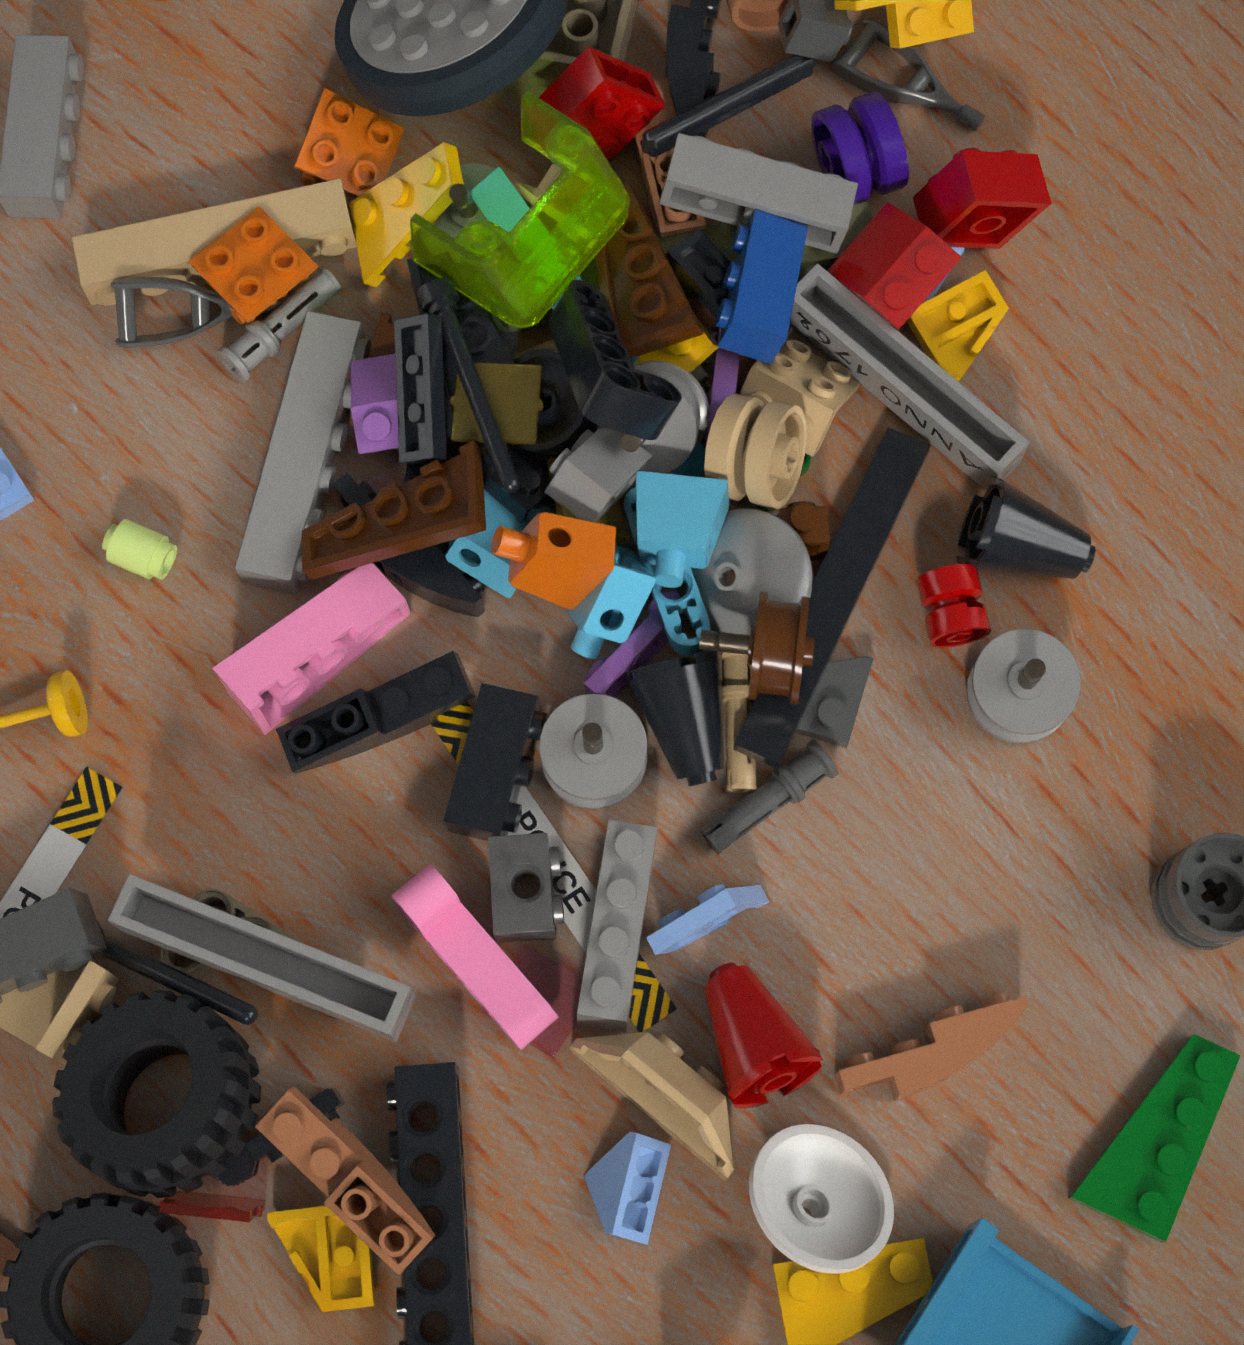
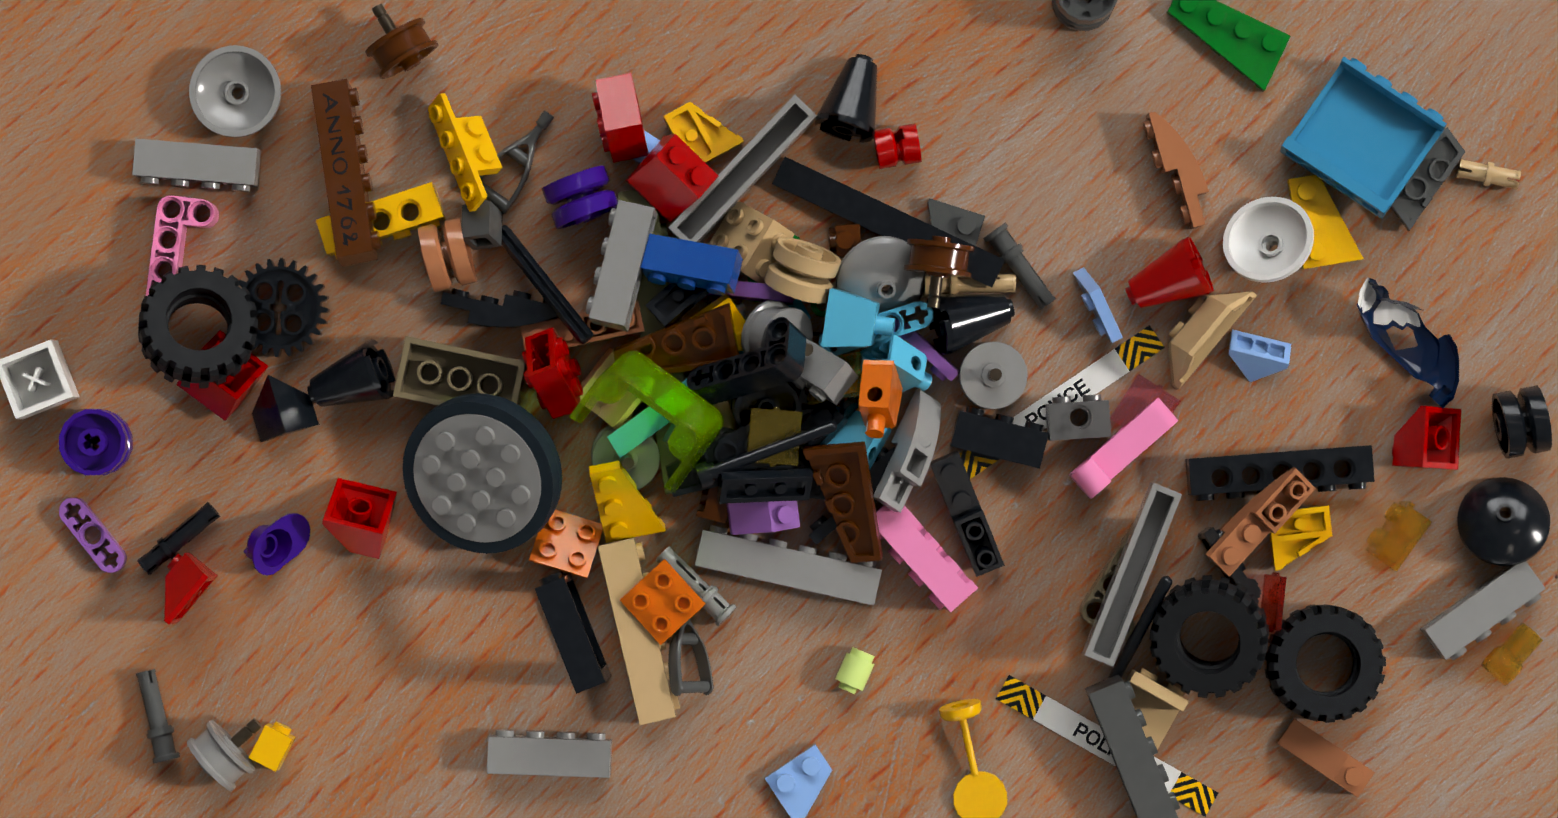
camera: 90 degrees left, 15 degrees up
(196, 82) = (572, 631): none -> black window
(473, 623) = (913, 453): none -> light grey slope
(617, 926) = (1103, 360): light grey brick -> none
(1023, 686) = (951, 104): light grey wheel -> none

